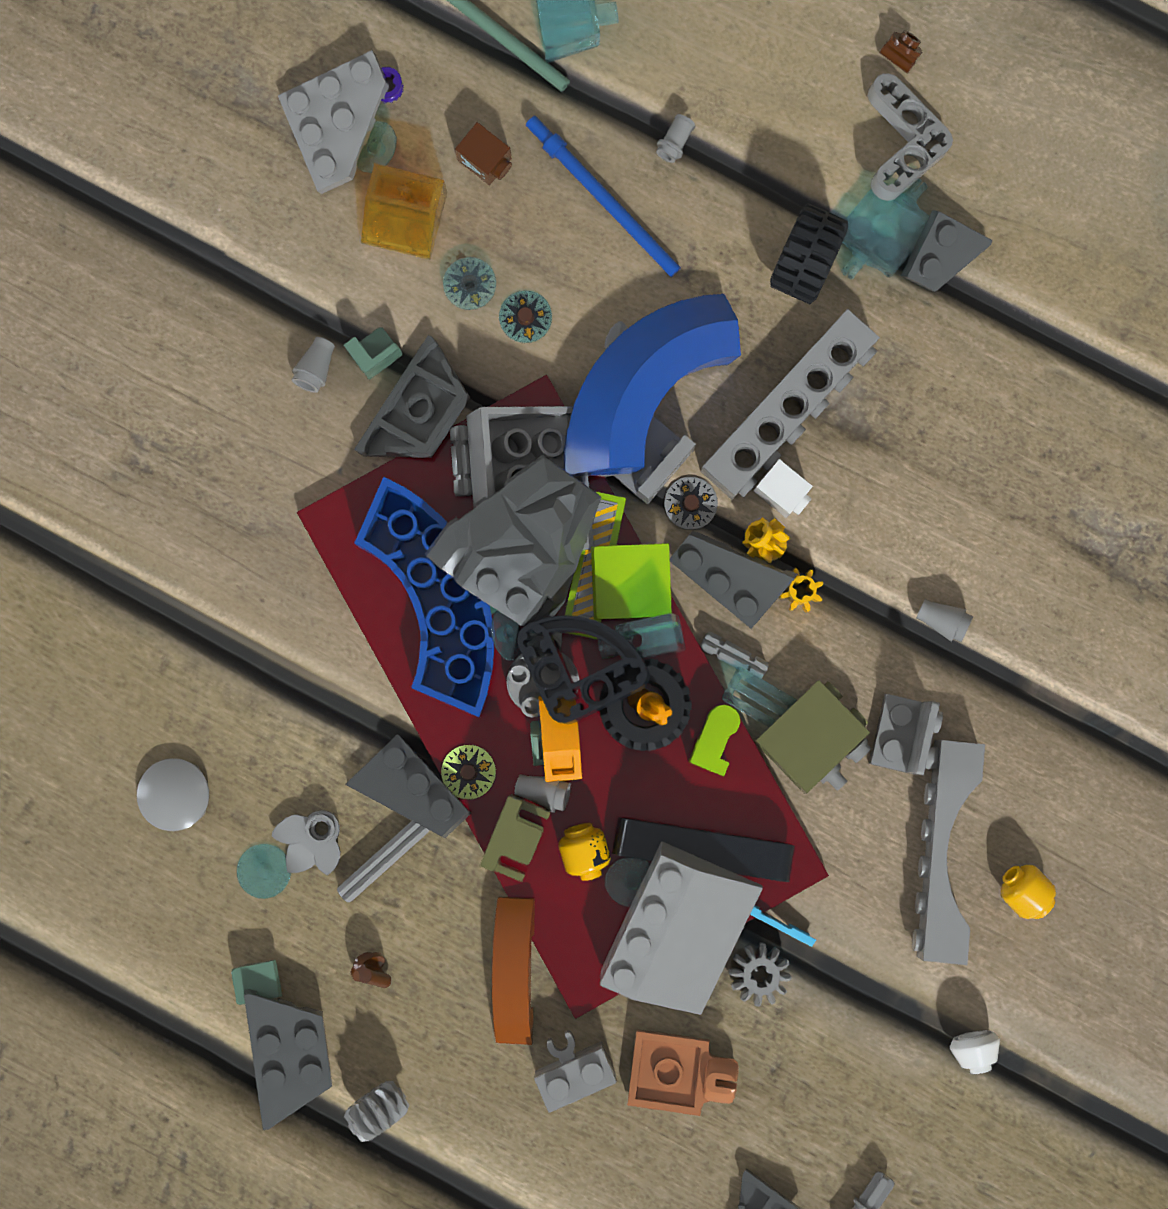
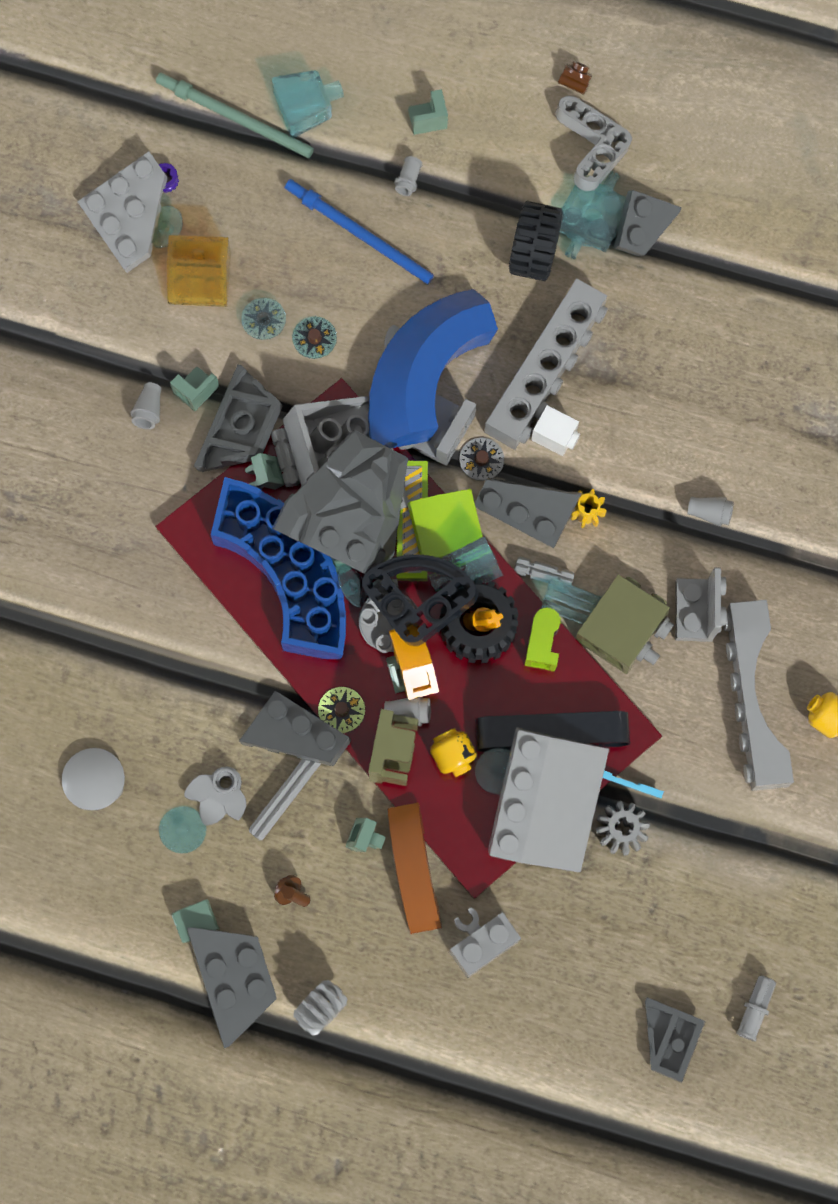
camera: 15 degrees left, 10 degrees down
(435, 475) = (266, 470): none -> sand green tile
(465, 923) = (363, 836): none -> sand green tile
(484, 154) = (255, 215): reddish brown brick -> none
(679, 1074) = (572, 926): nougat plate -> none
(715, 66) = (430, 115): none -> sand green panel
(766, 539) = (550, 472): yellow gear -> none
(976, 1050) = (818, 855): white cone -> none

